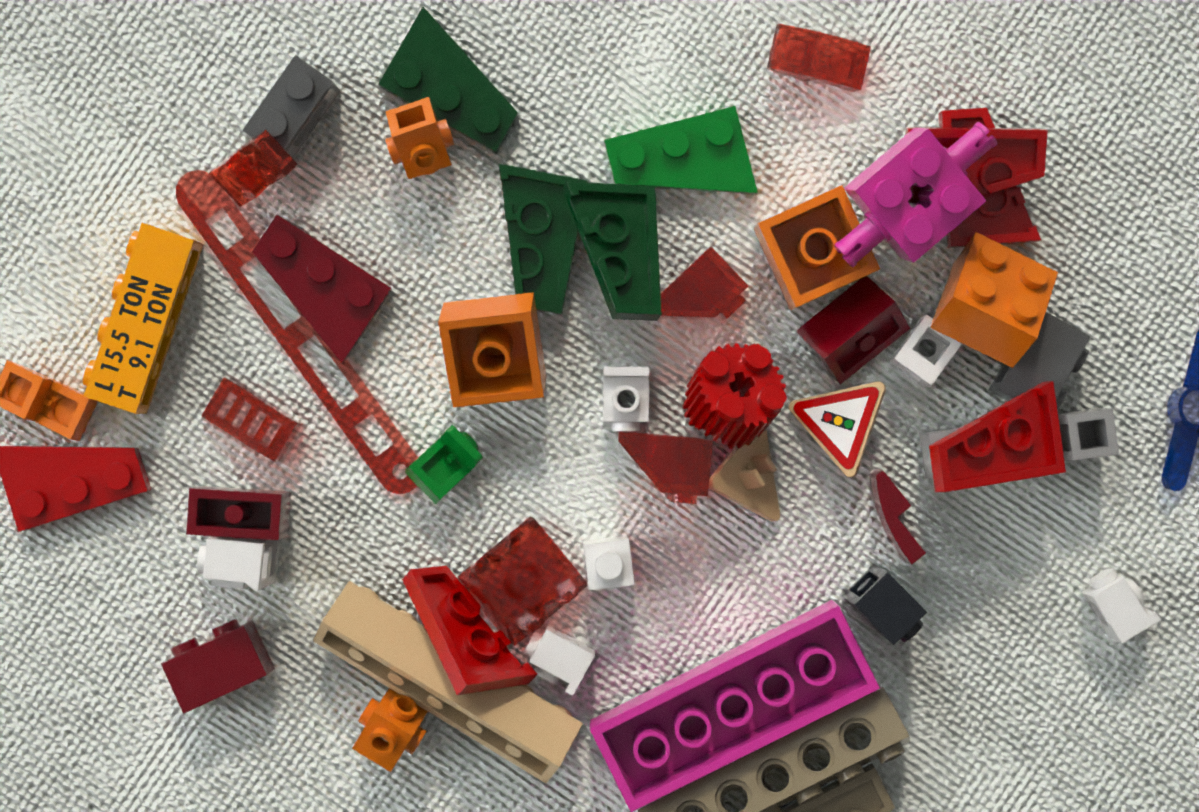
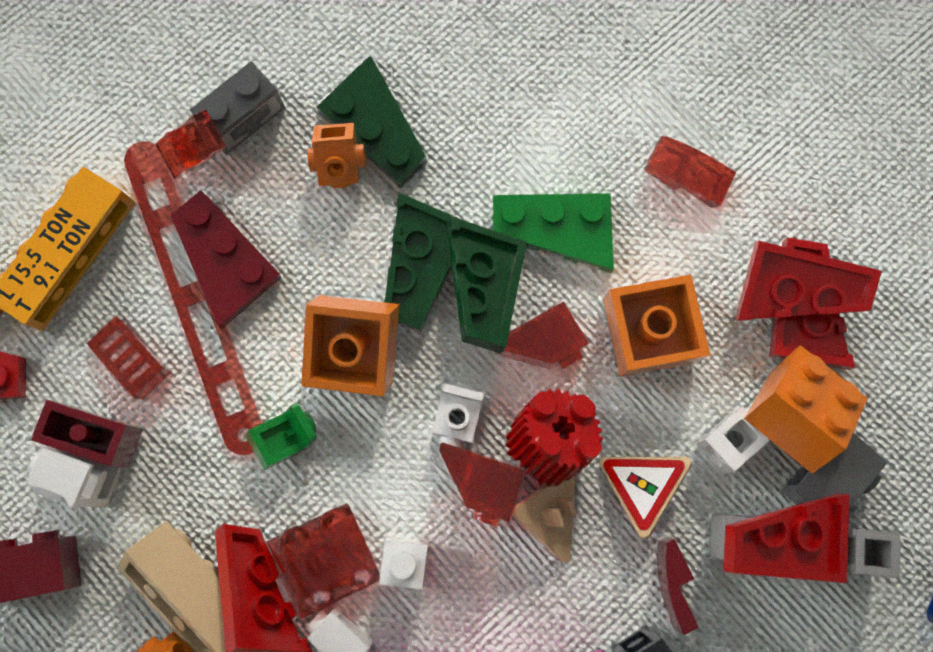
camera: 15 degrees right, 10 degrees down
(854, 328) = (673, 406): dark red panel -> none
(944, 194) = (782, 299): dark pink brick -> none

